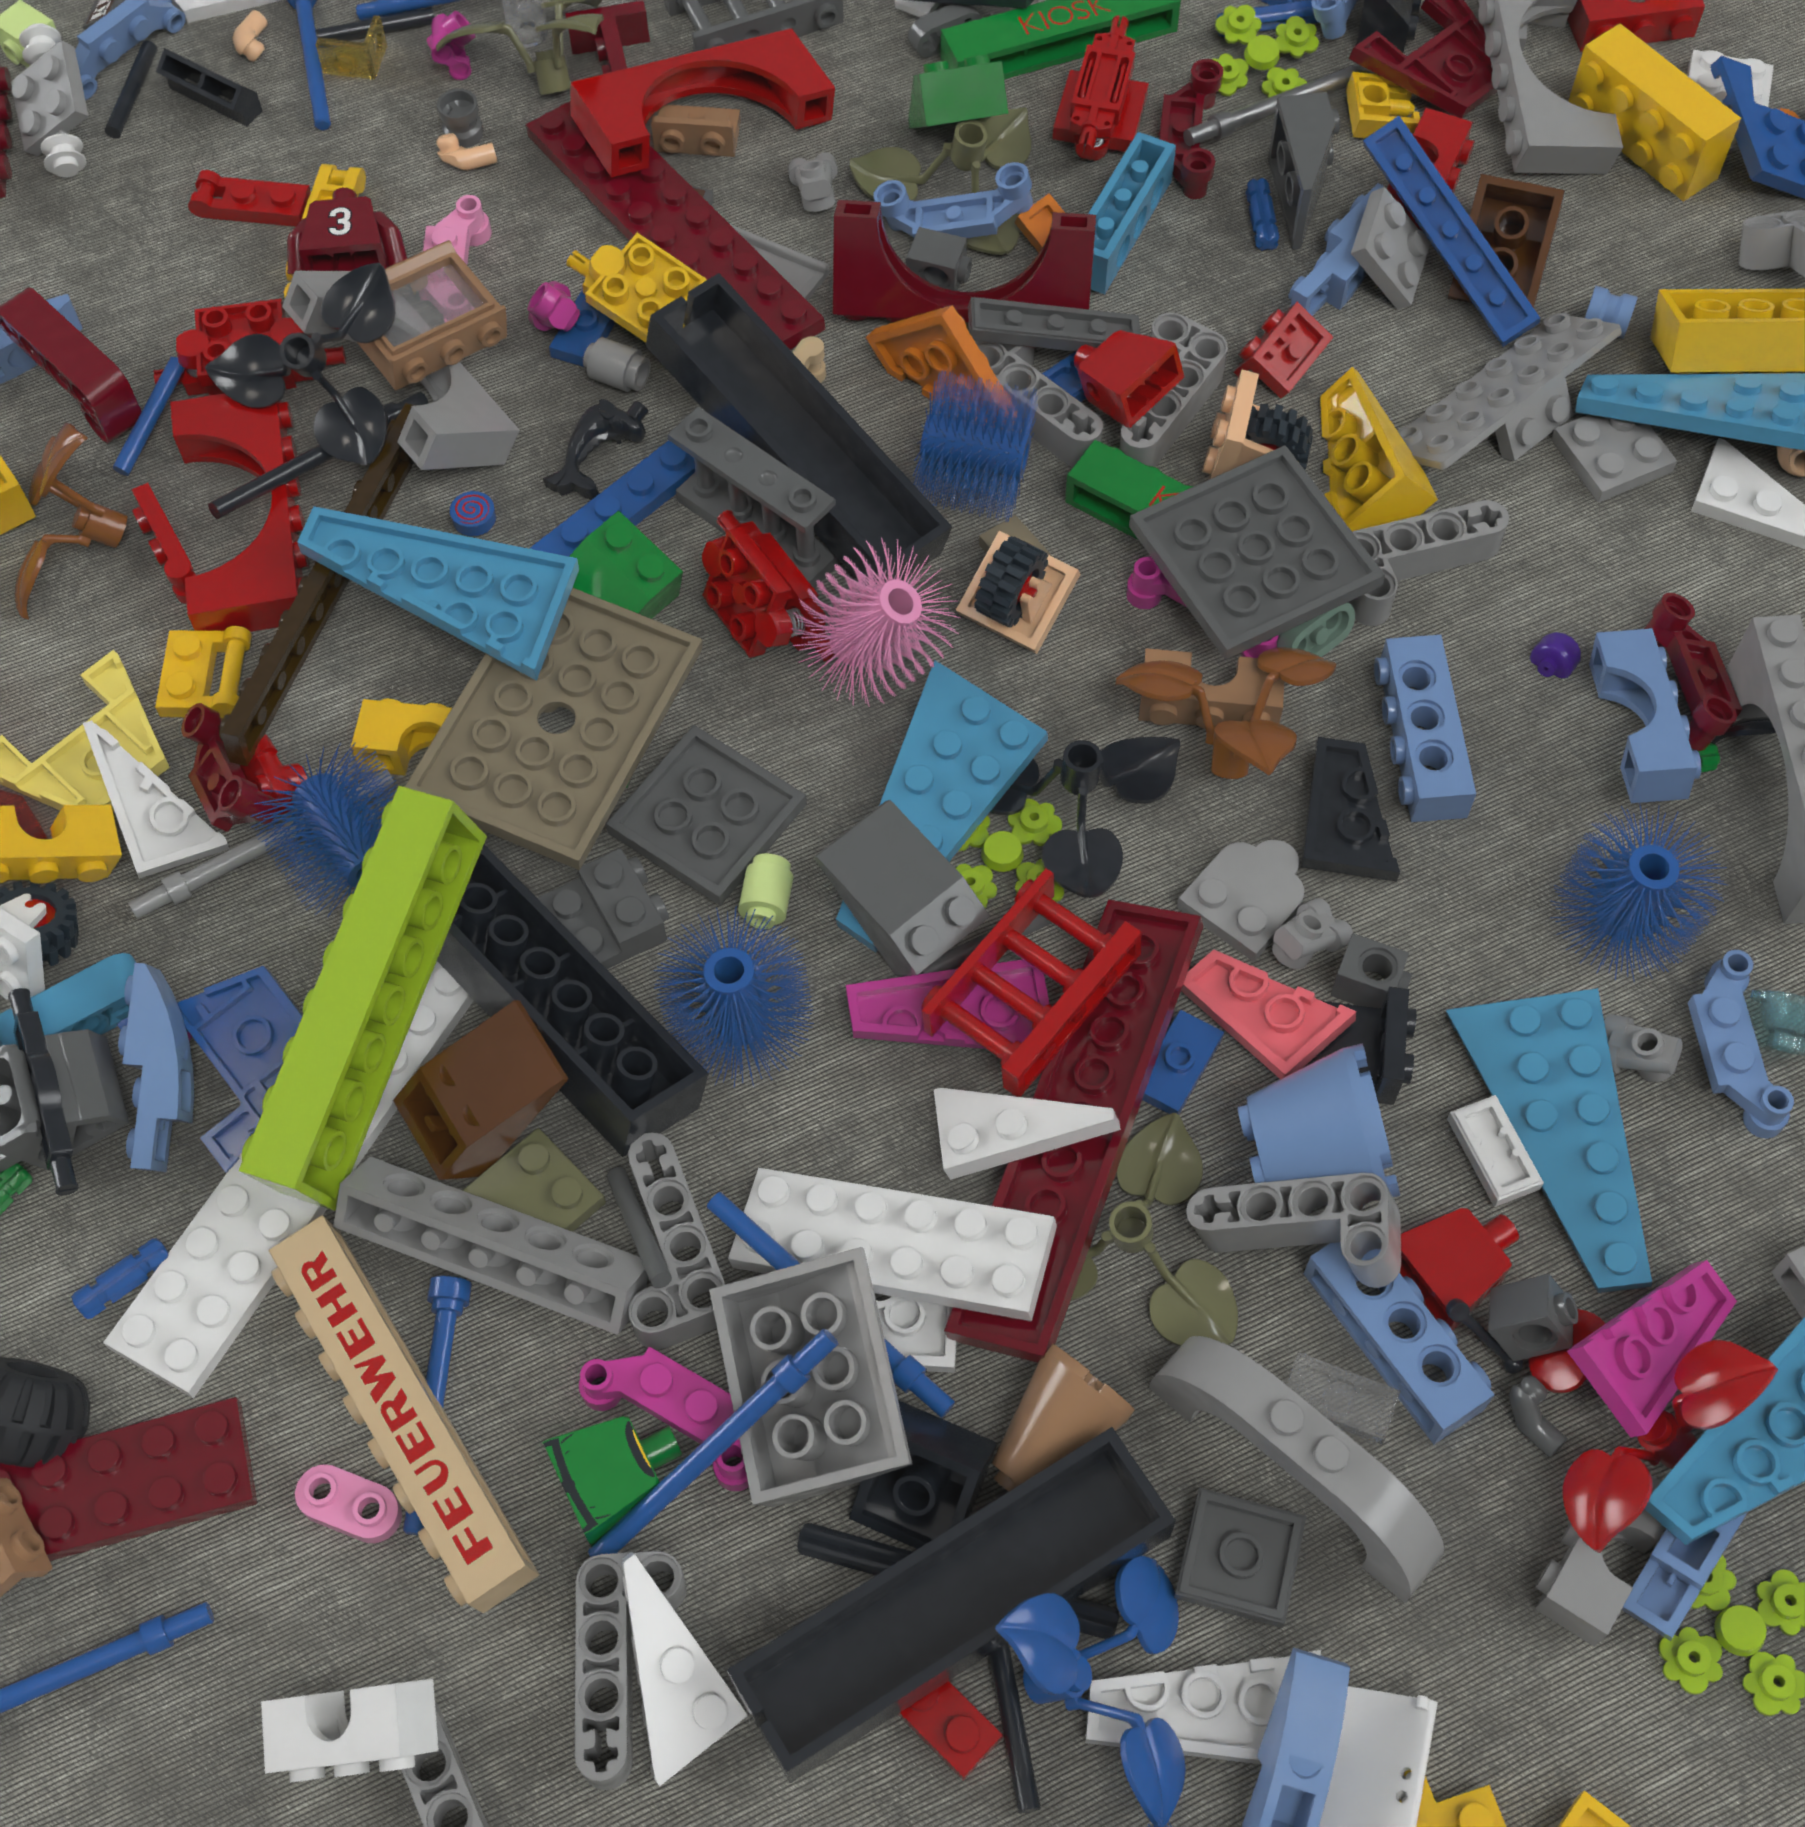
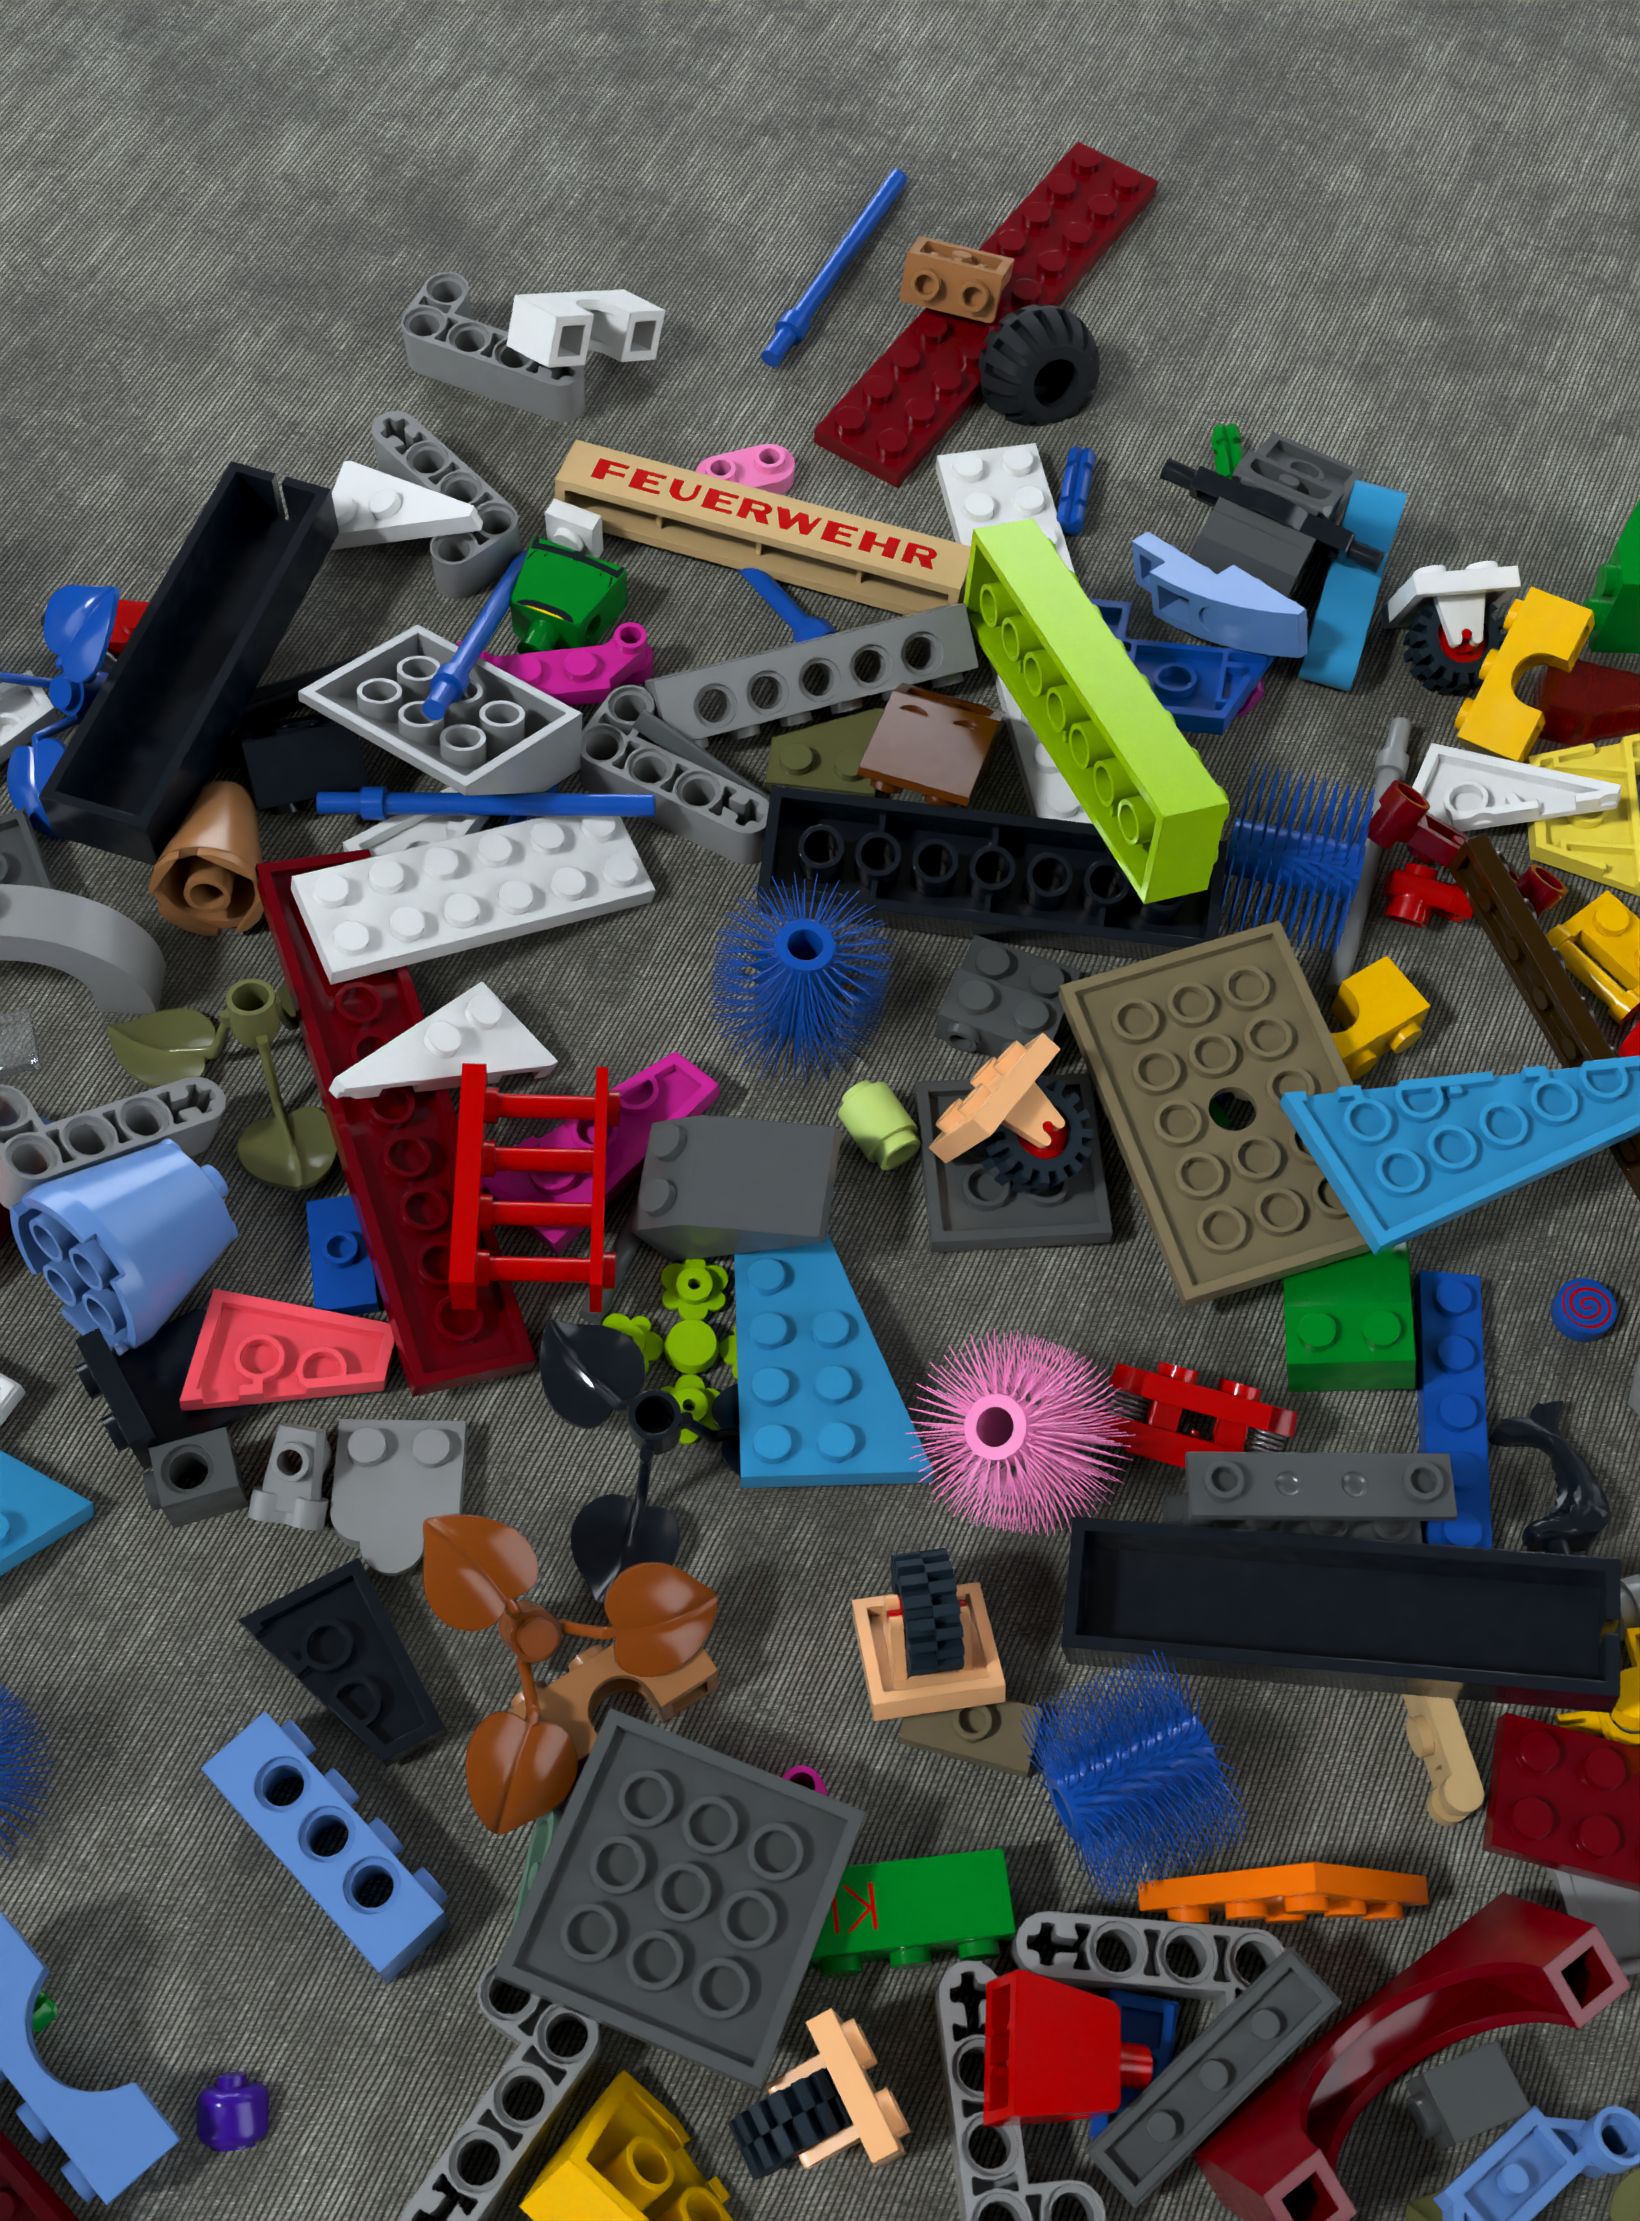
camera: 135 degrees right, 0 degrees up
(542, 1537) = (574, 528): none -> white plate
(697, 804) = (1019, 1121): none -> plate

